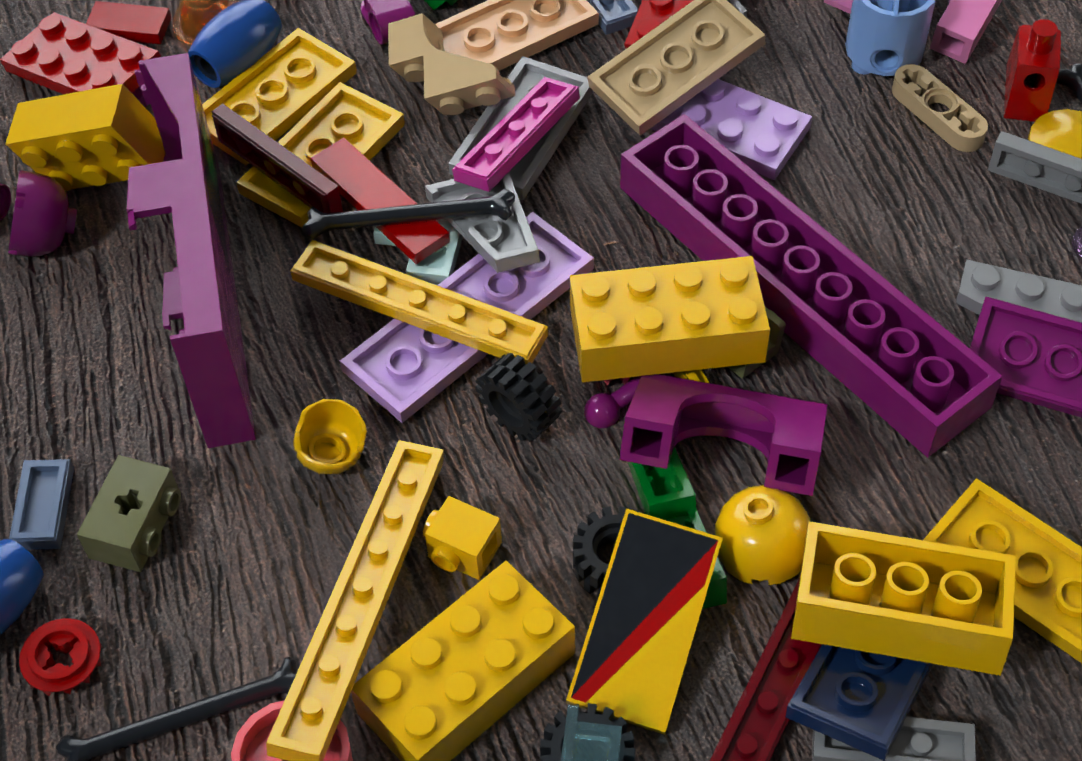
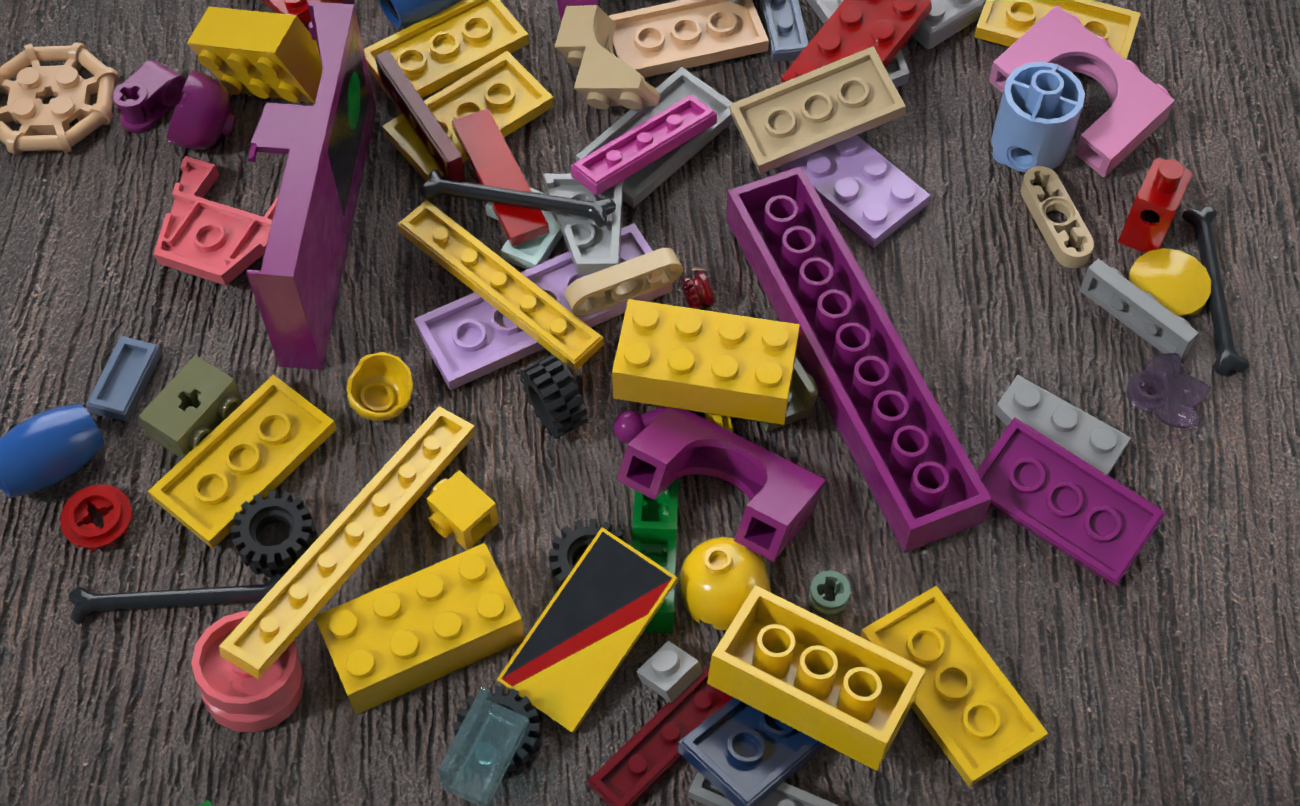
camera: 15 degrees right, 5 degrees up
(95, 335) = (207, 235): none -> coral wing
(204, 554) = (241, 459): none -> yellow plate
(256, 595) = (267, 512): none -> black tyre
(547, 267) = (623, 281): none -> tan beam
(621, 257) = (698, 291): none -> dark red bush
(743, 640) = (670, 671): none -> light grey plate
(878, 505) = (833, 579): none -> sand green bush

